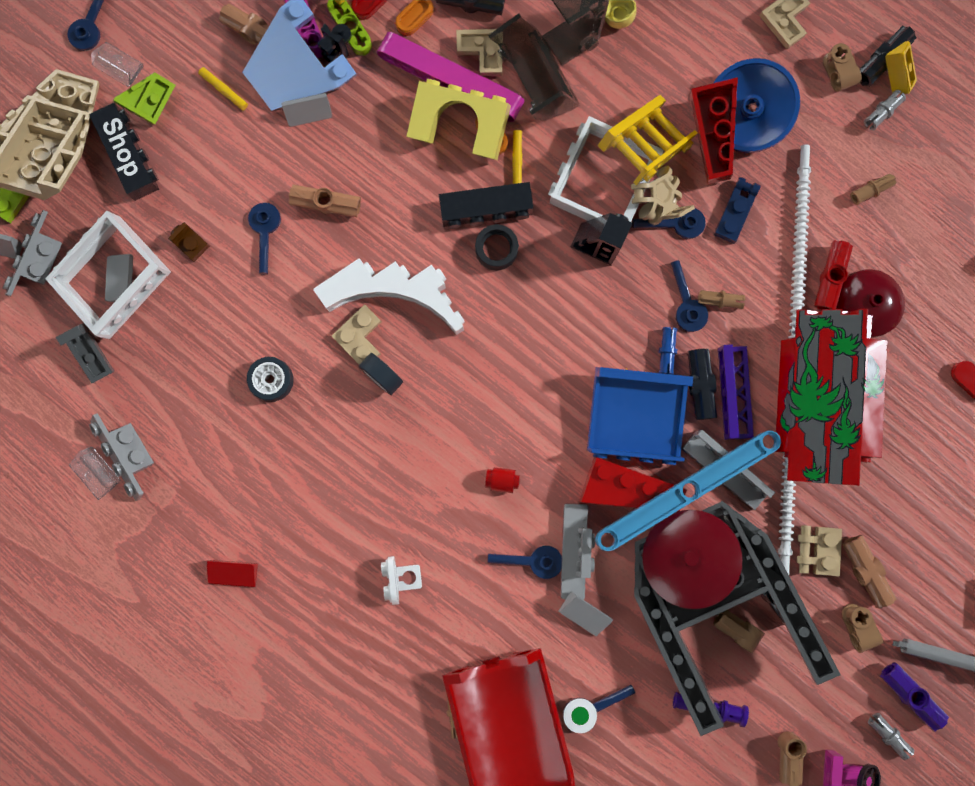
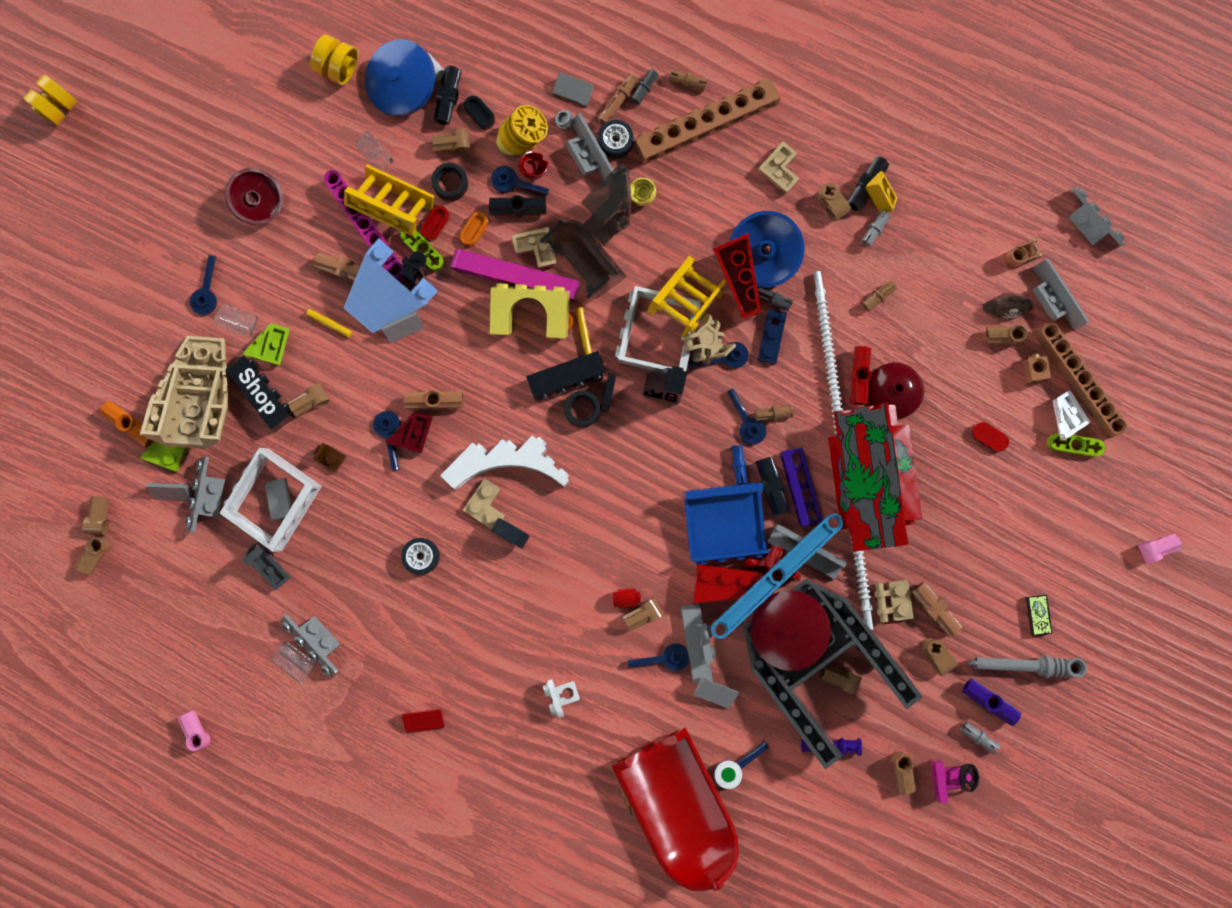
camera: 10 degrees left, 0 degrees up
(186, 170) = (312, 398): none -> medium nougat piece
(291, 234) = (412, 433): none -> dark red wing
(521, 502) = (645, 613): none -> medium nougat piece
(530, 234) = (608, 391): none -> black tile
(685, 469) = (775, 555): none -> red piece
(751, 167) = (774, 298): none -> dark grey axle

